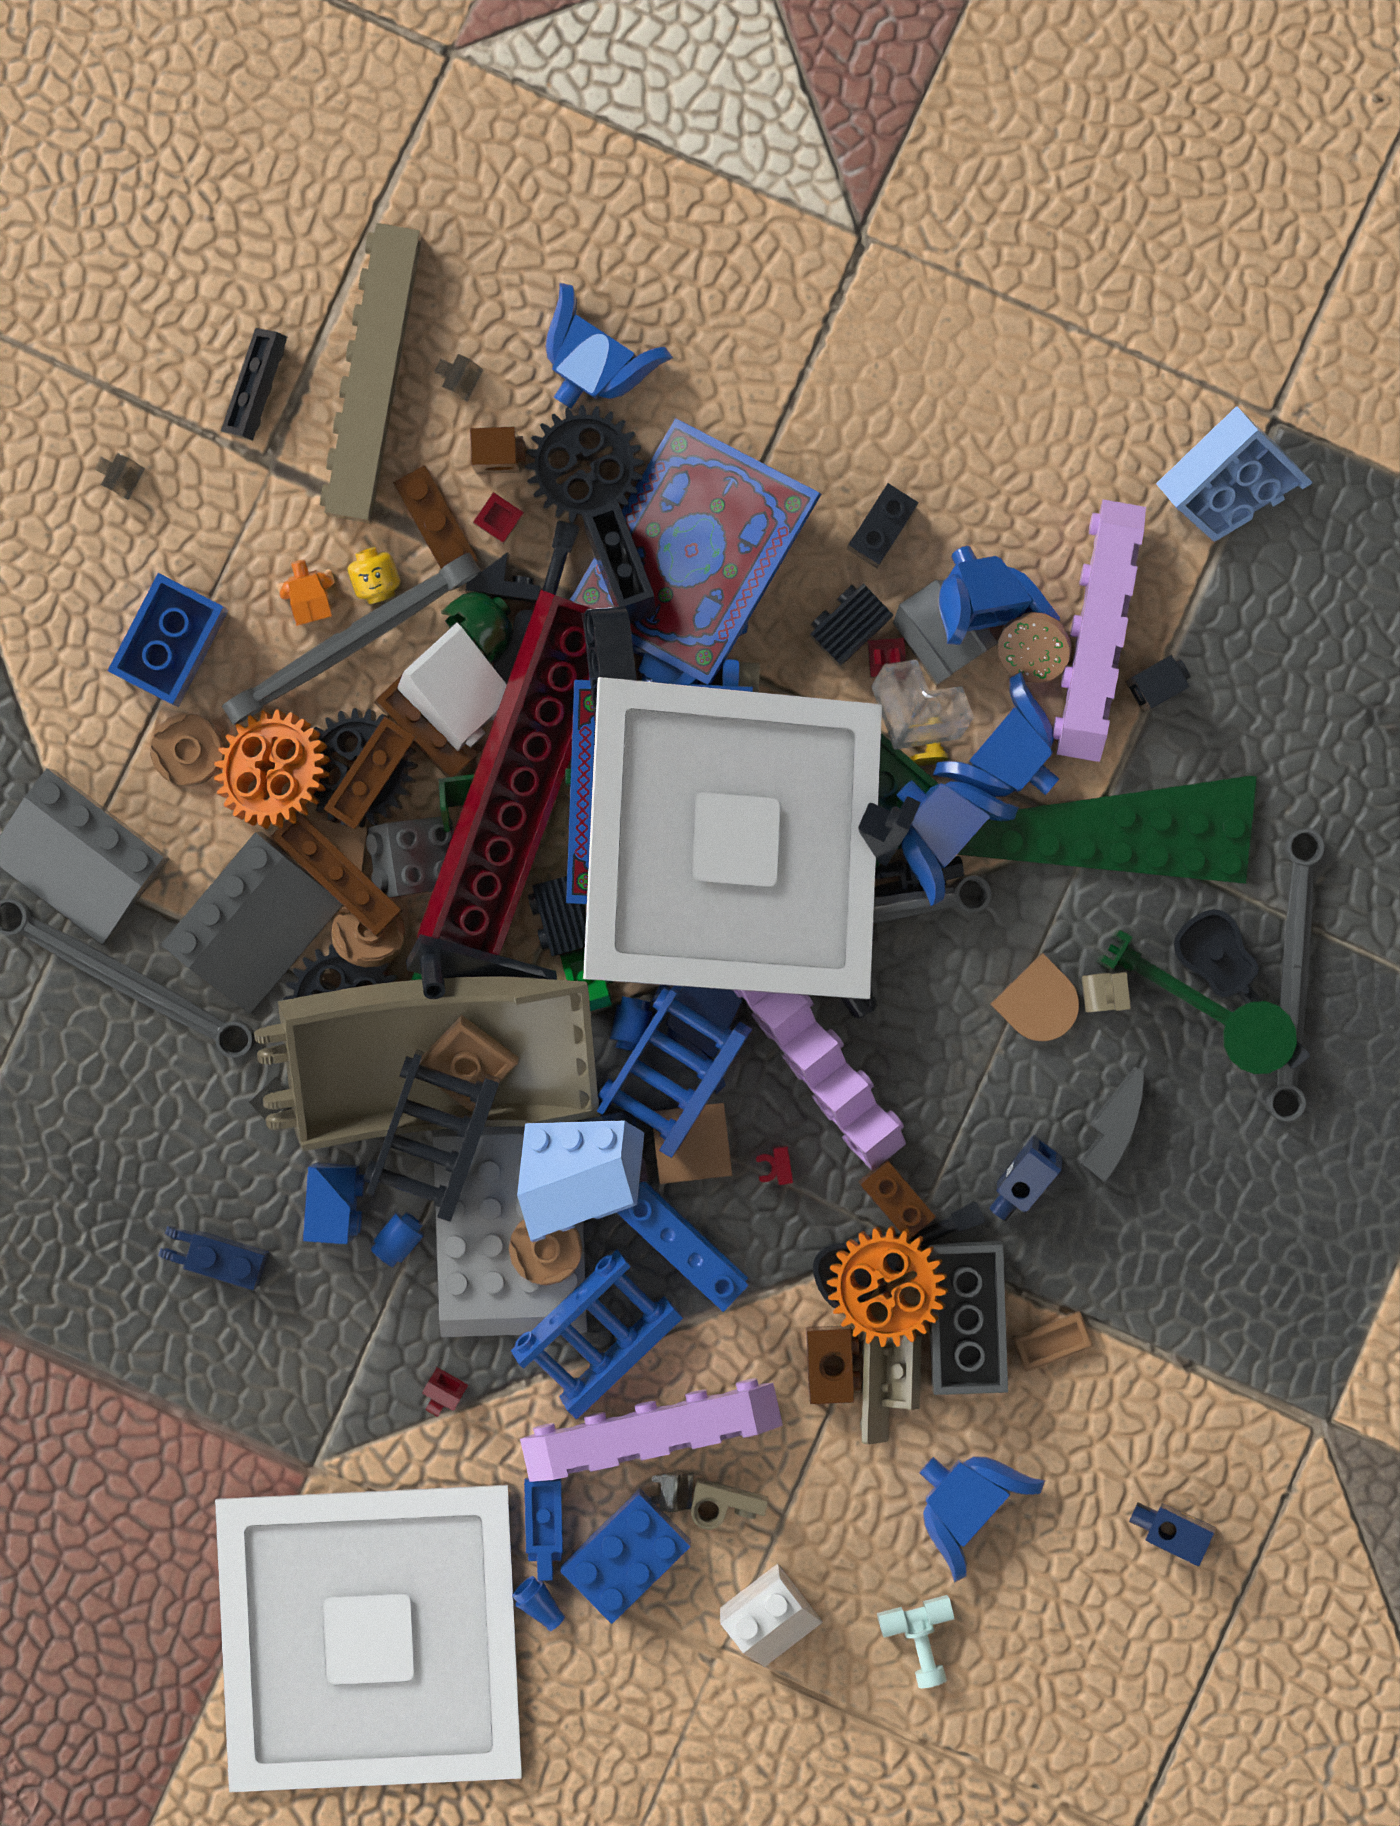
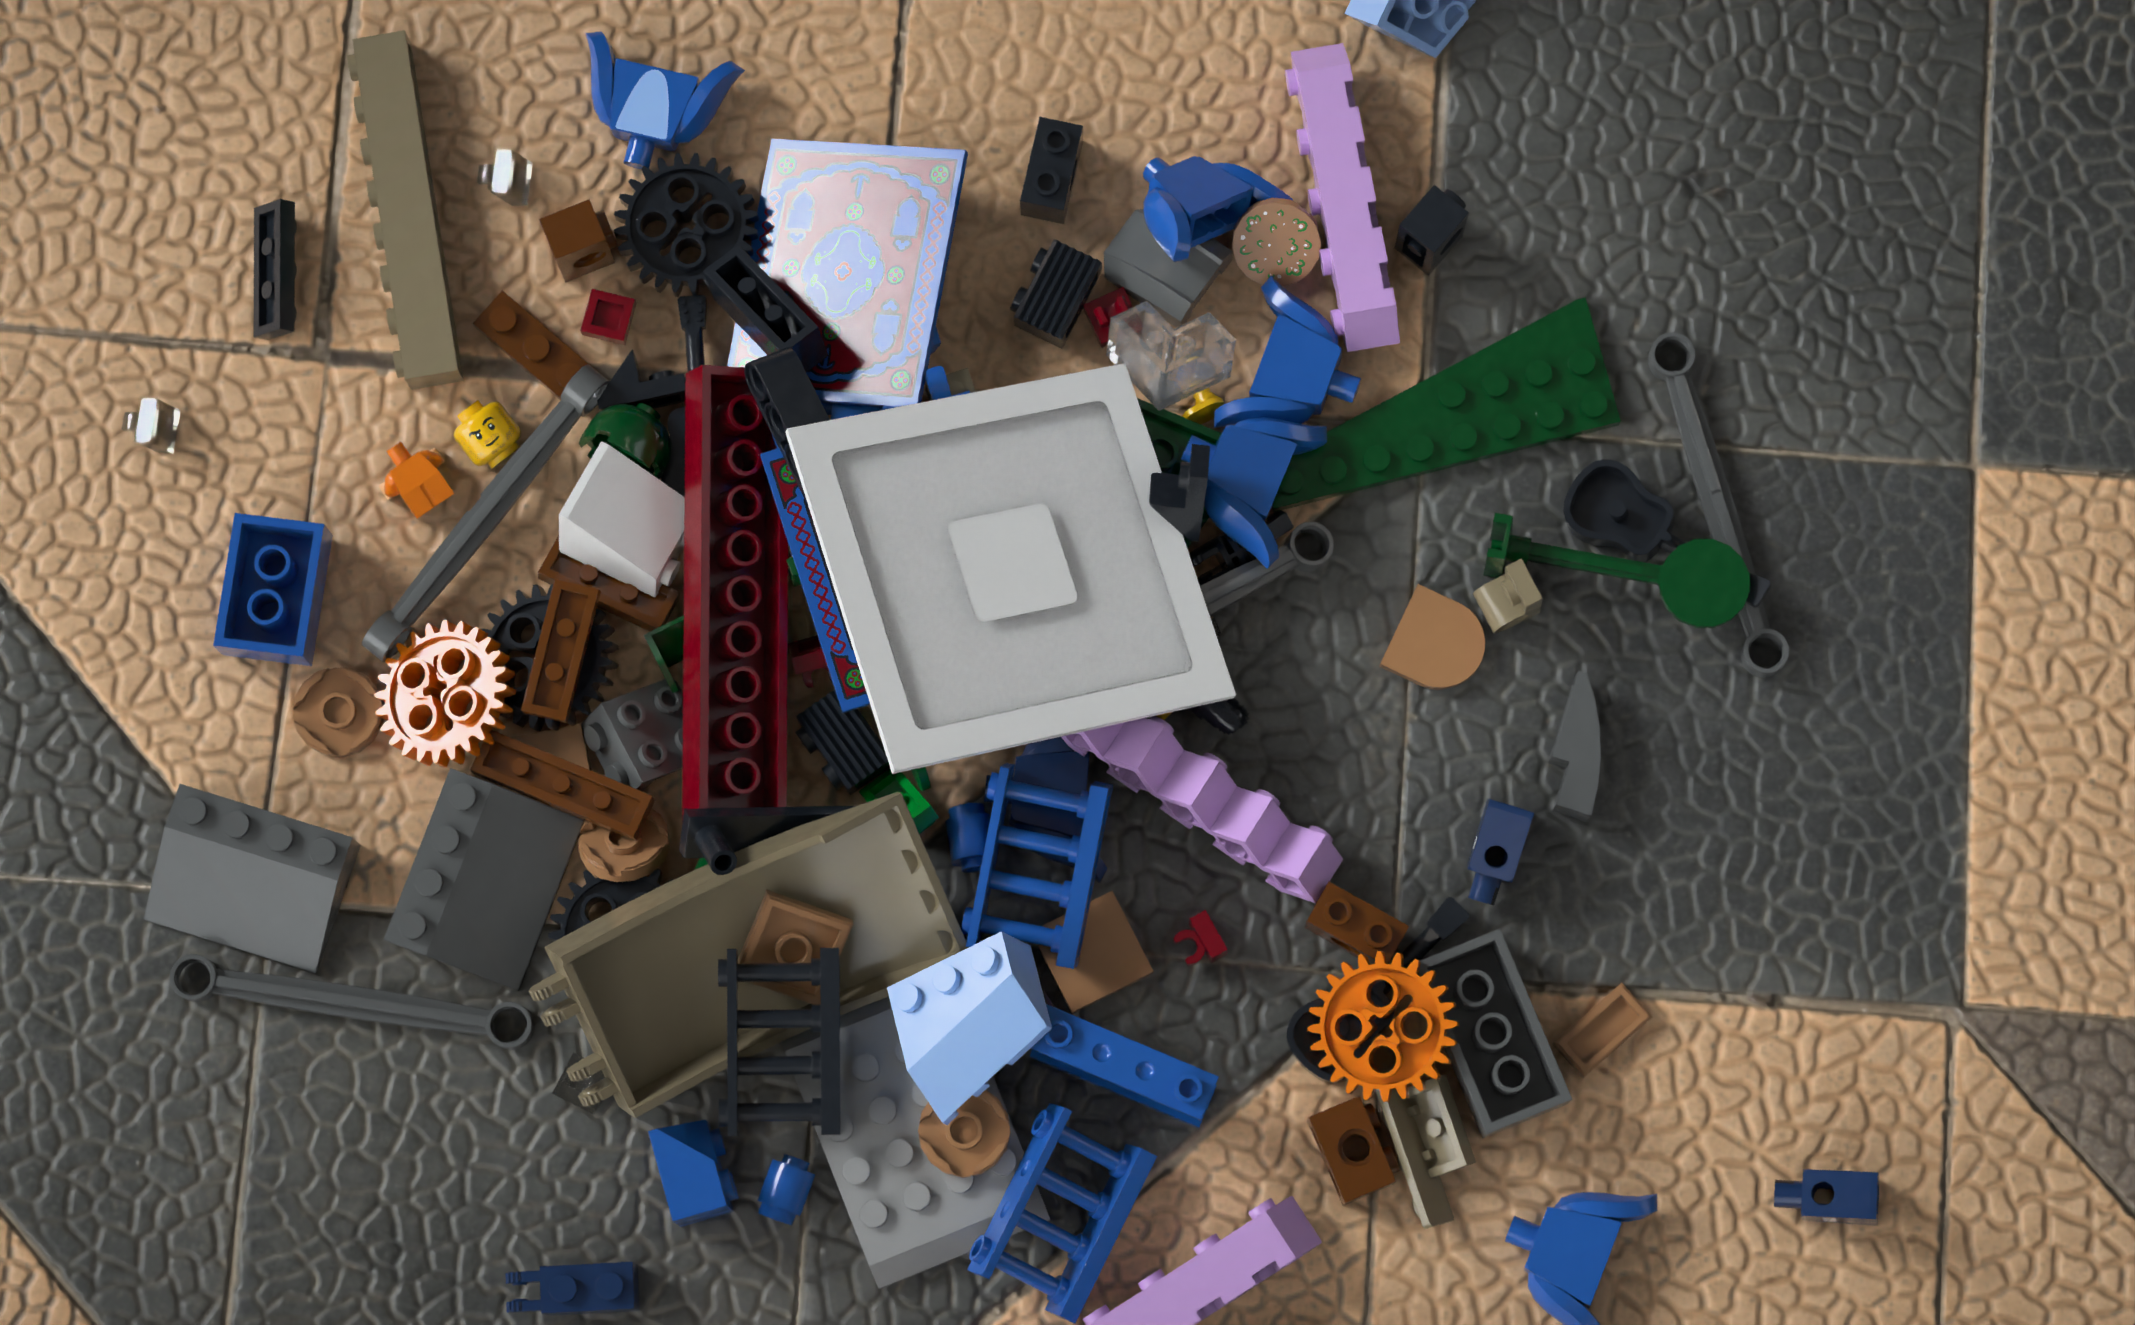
camera: 15 degrees left, 10 degrees down
(556, 840) = (807, 657): none -> dark red tile

